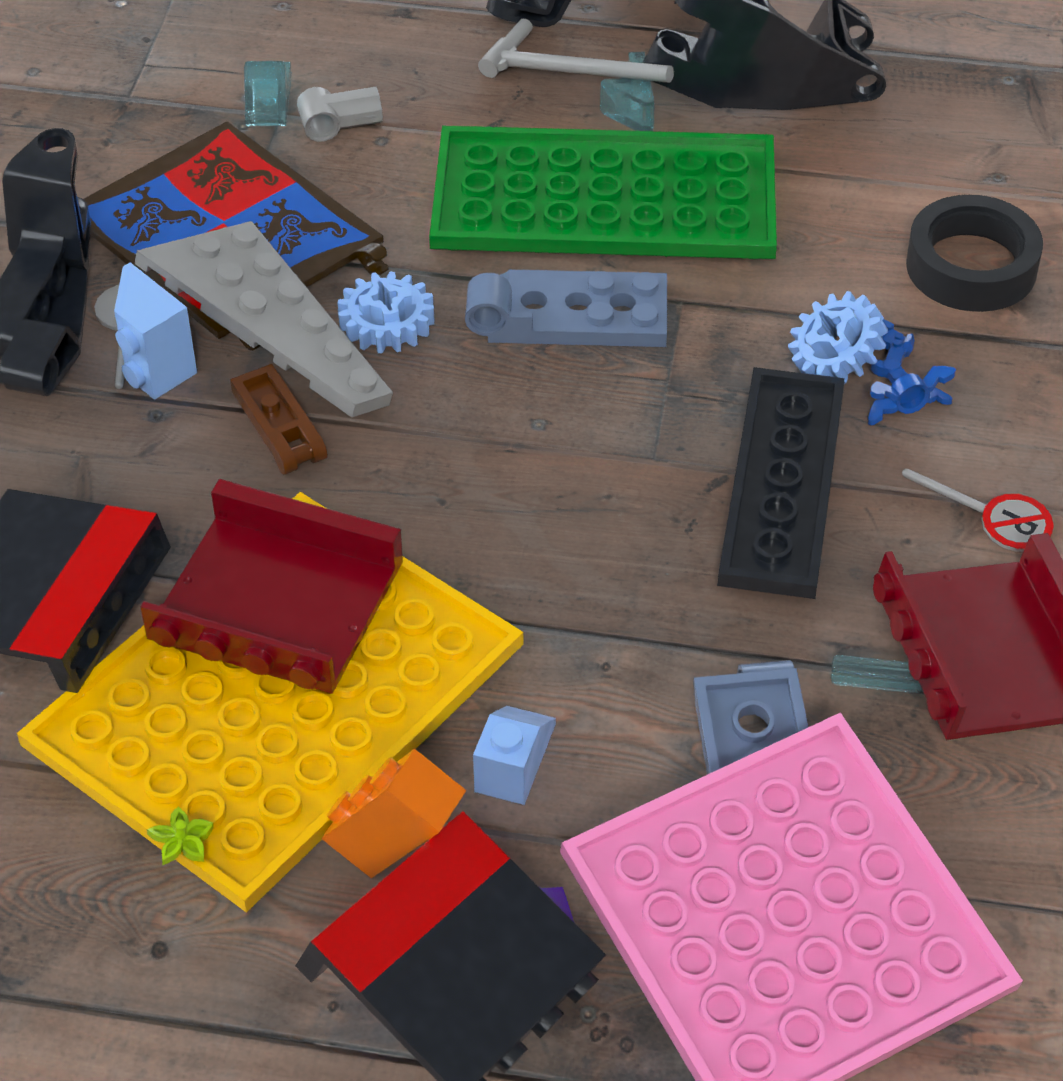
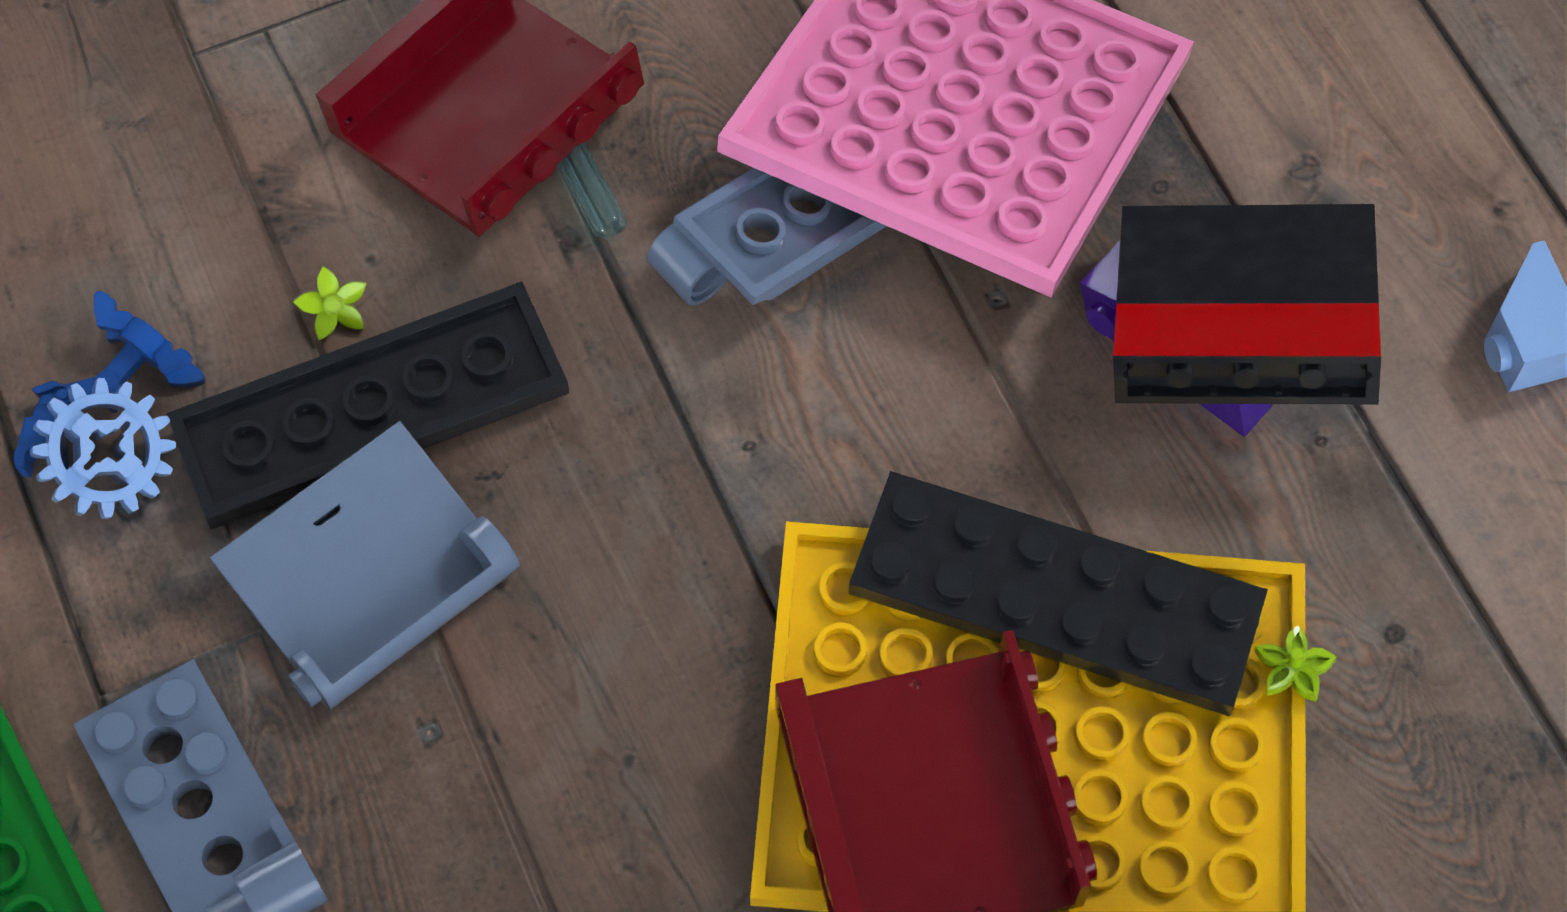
camera: 125 degrees left, 15 degrees up
(341, 737) = (1059, 592): none -> black plate
(392, 812) = (1146, 441): orange brick -> none
(511, 753) = (936, 441): light blue slope -> none
(657, 430) = (369, 580): none -> sand blue door
(877, 494) = (332, 303): none -> lime plant
(1005, 519) = (277, 172): piece -> none

